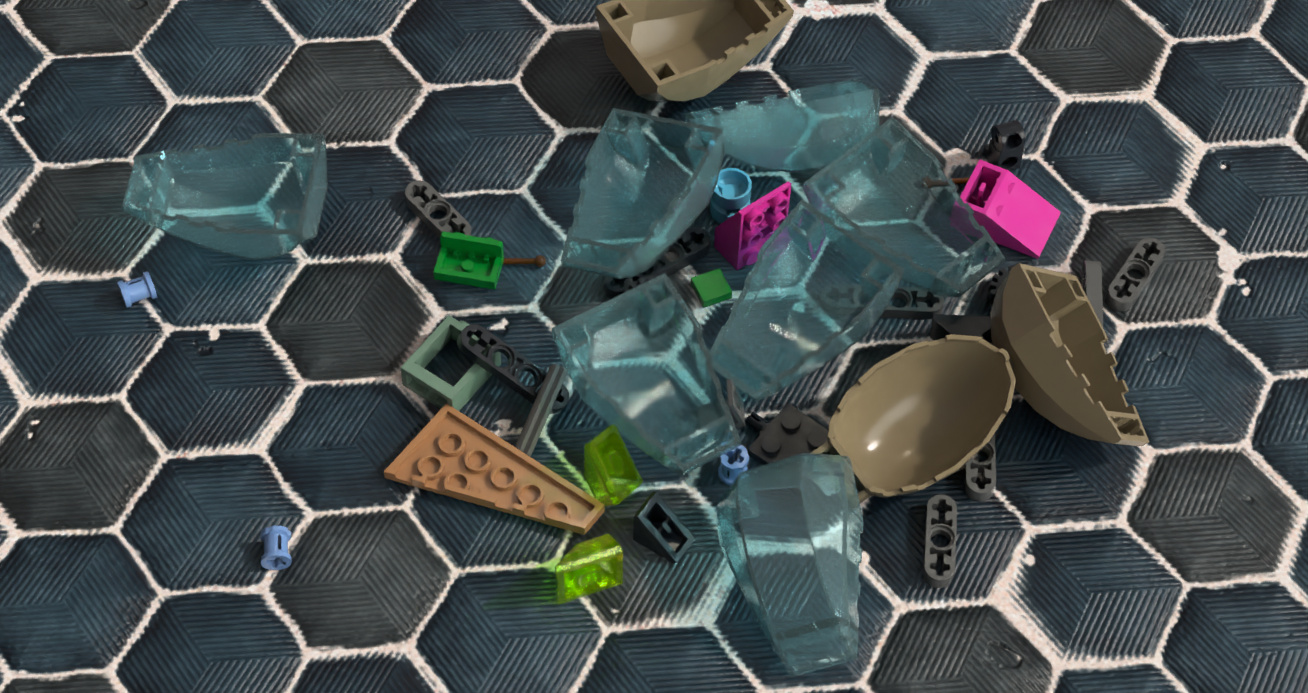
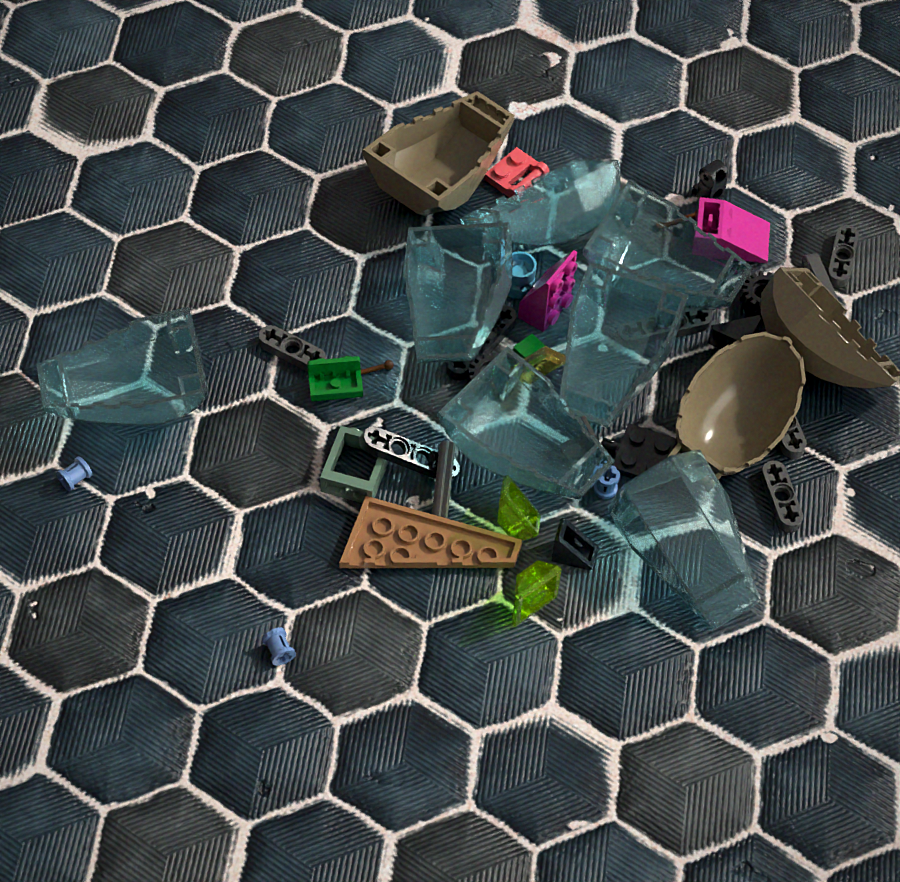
camera: 20 degrees left, 0 degrees up
(708, 303) = (546, 360): none -> clear yellow tile
(777, 73) = (512, 168): none -> coral plate

